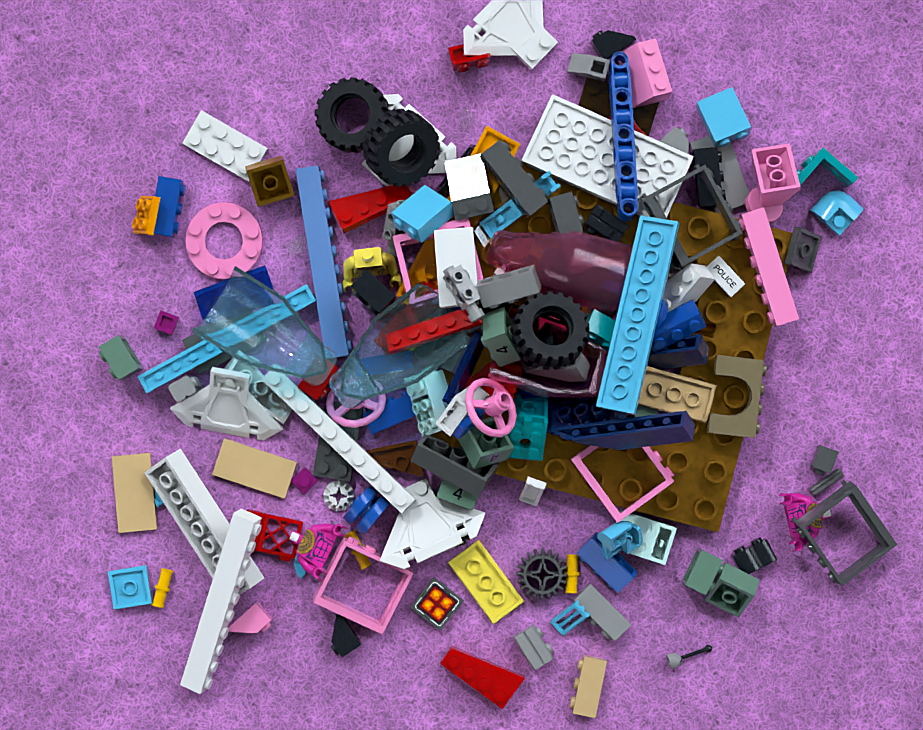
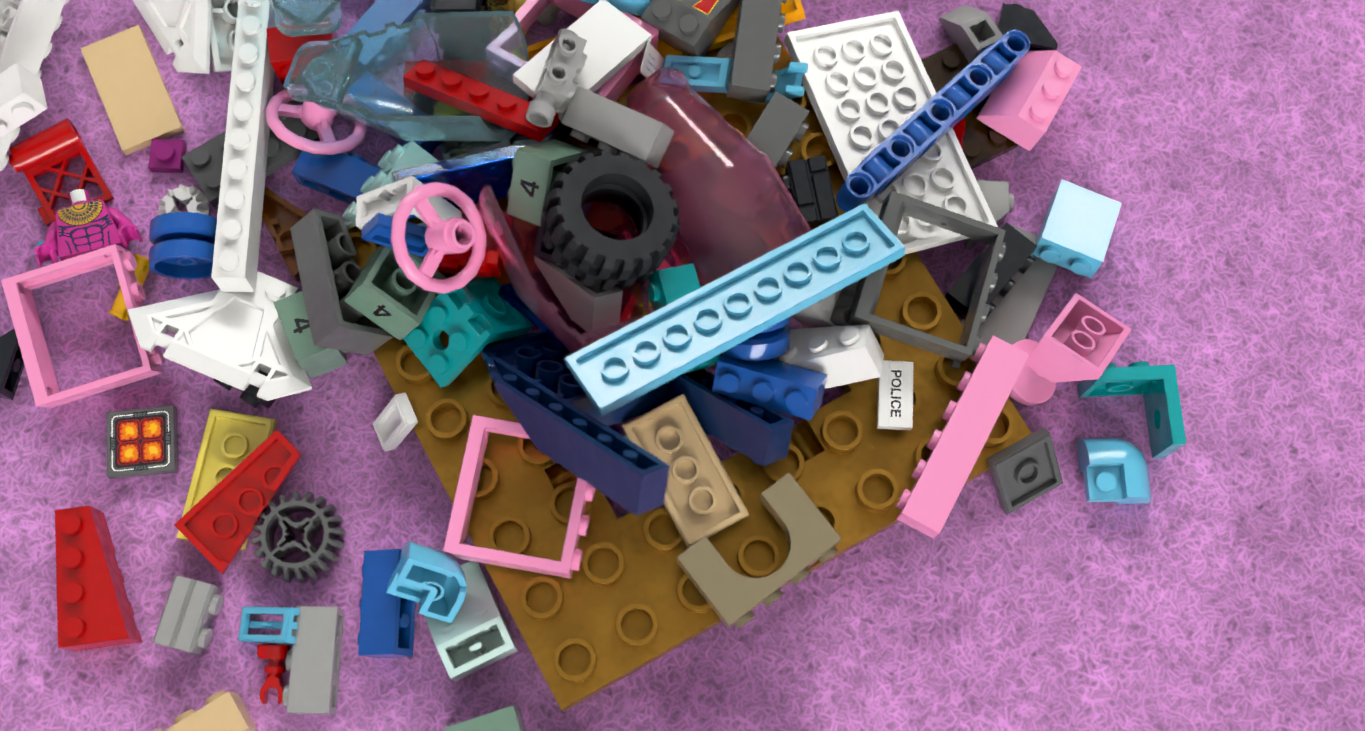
camera: 45 degrees right, 15 degrees down
(505, 589) = (228, 512): none -> red wing
(572, 572) = (333, 575): yellow pin -> none
(588, 631) = (275, 654): none -> red piece

